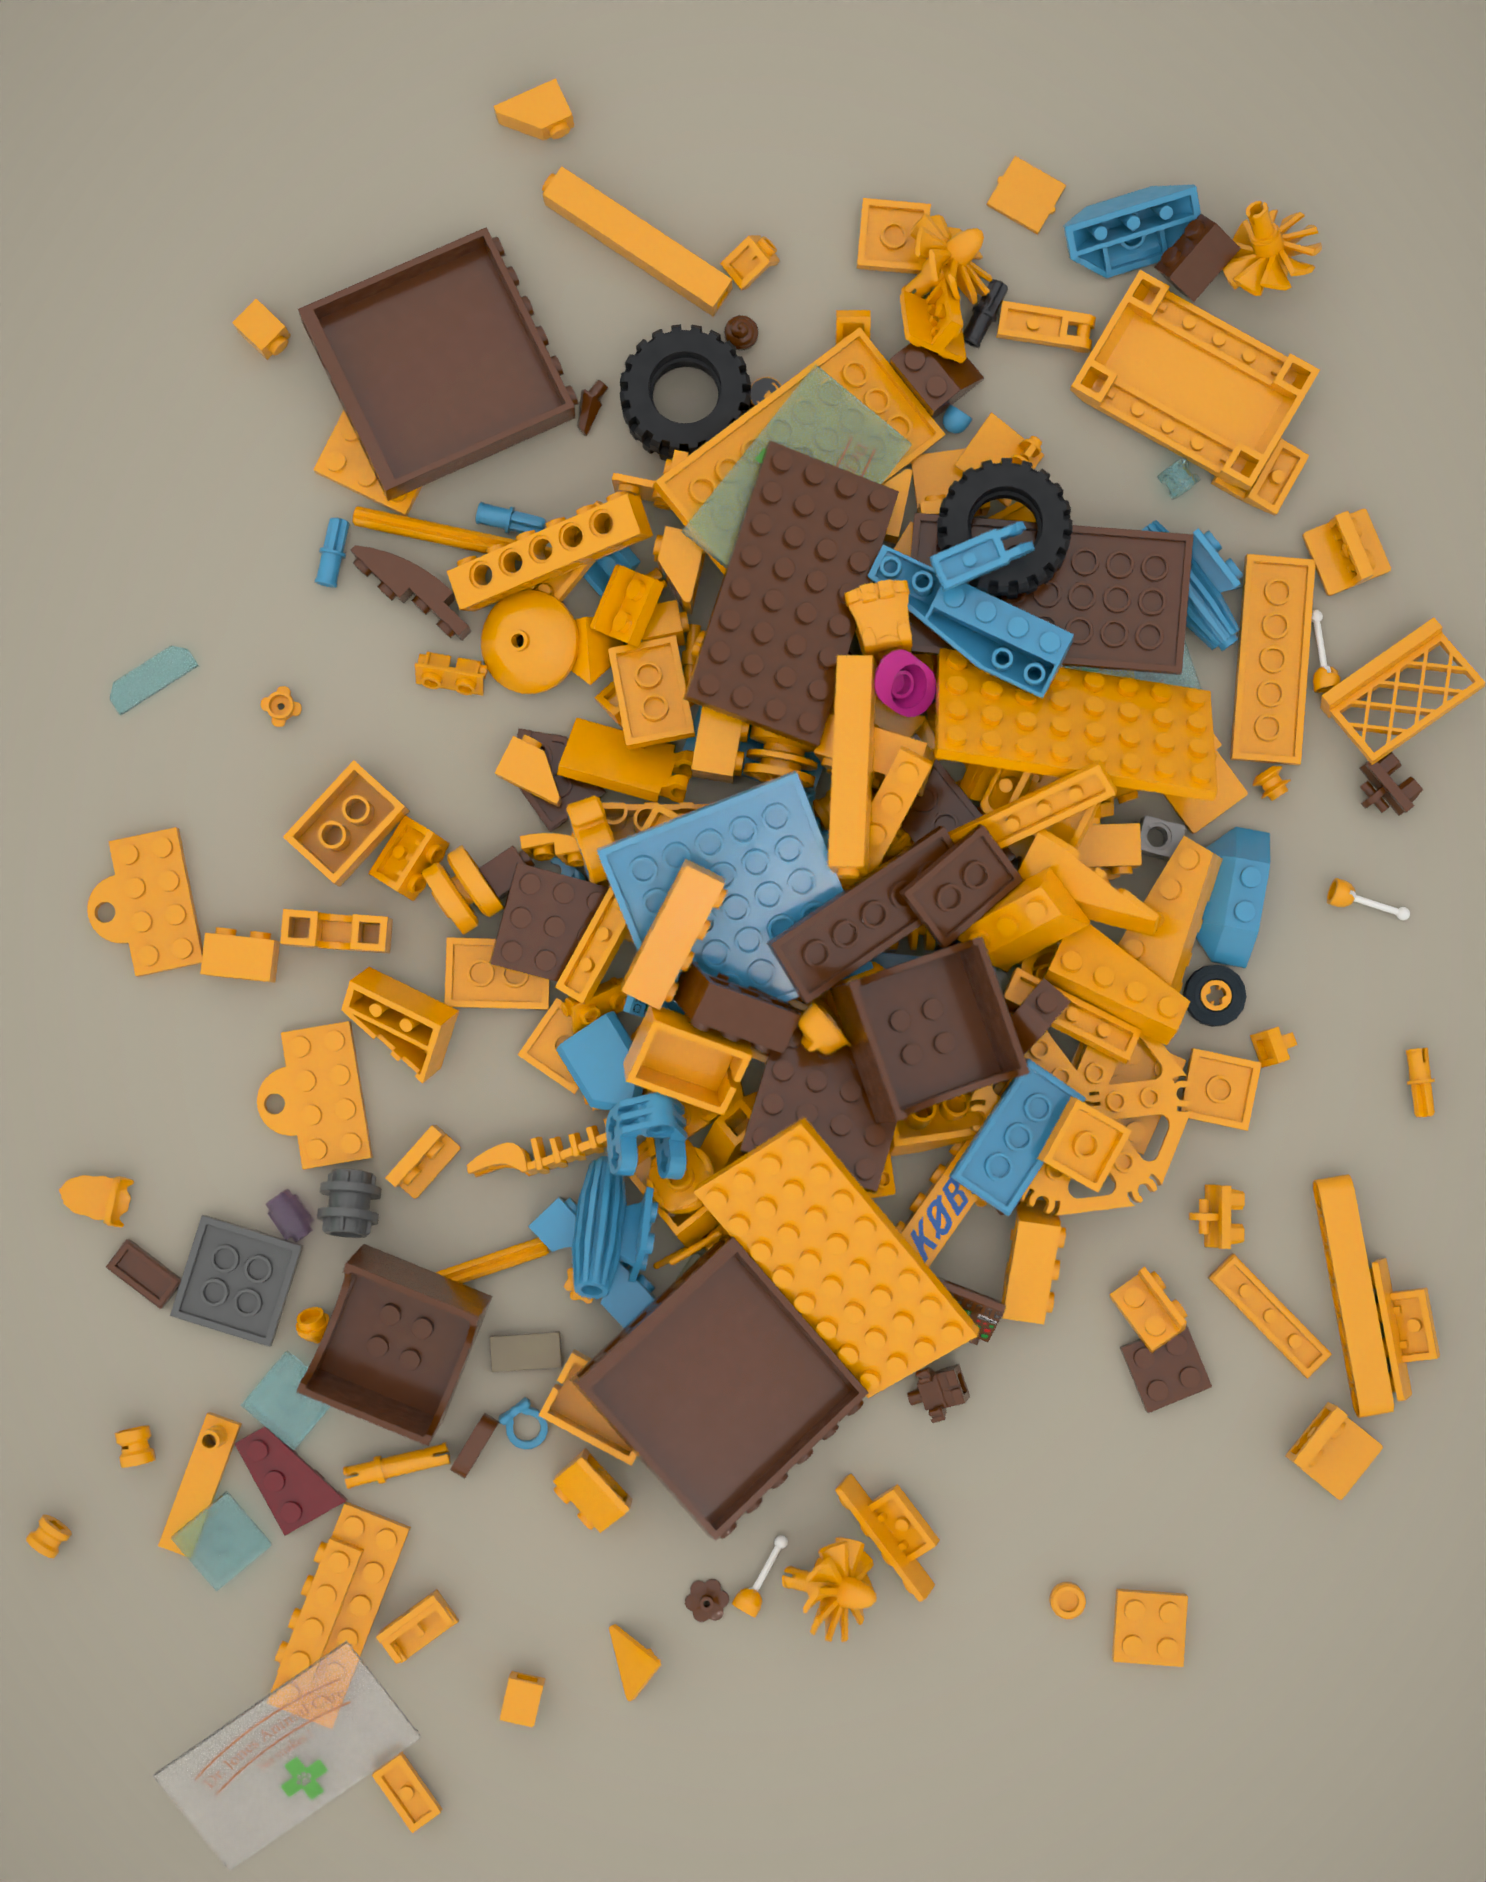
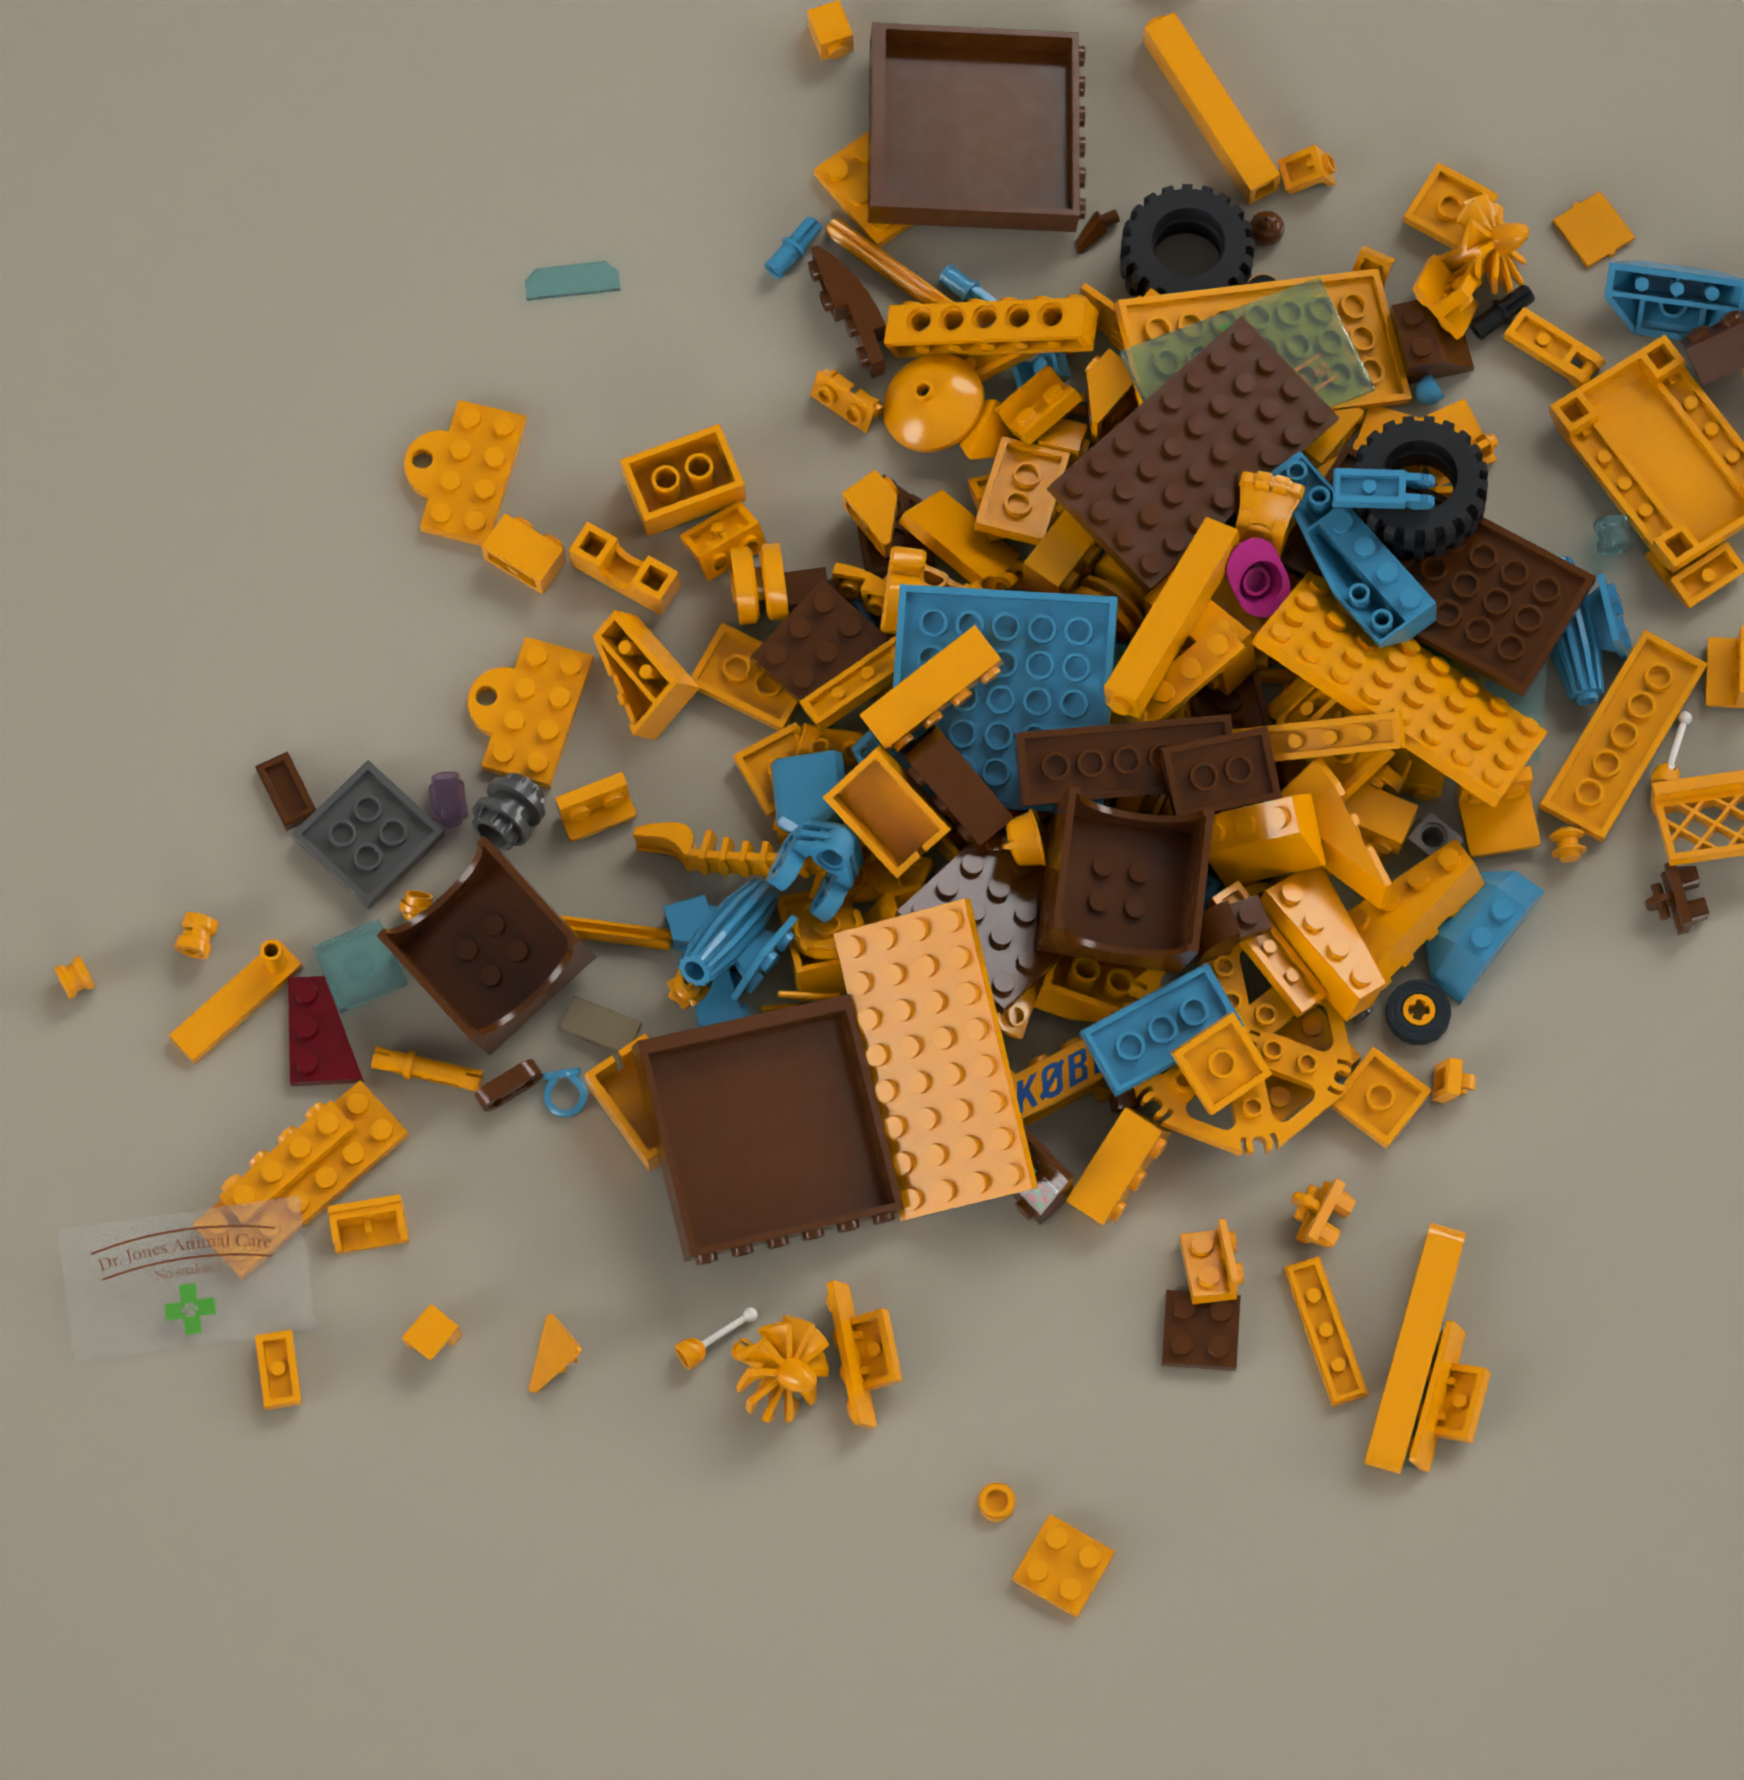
camera: 30 degrees right, 15 degrees down
(98, 1197) = (282, 701): light orange piece -> none
(221, 1541) = (229, 1058): clear light blue tile -> none
(271, 703) = (672, 348): light orange plate -> none
(592, 1492) = (597, 1175): light orange slope -> none
(710, 1592) = (654, 1344): reddish brown plant -> none
(939, 1390) = (973, 1242): reddish brown piece -> none
(1334, 1451) = (1324, 1482): light orange bracket -> none
(1344, 894) = (1589, 977): hinge -> none
(1420, 1082) = (1578, 1182): light orange axle -> none

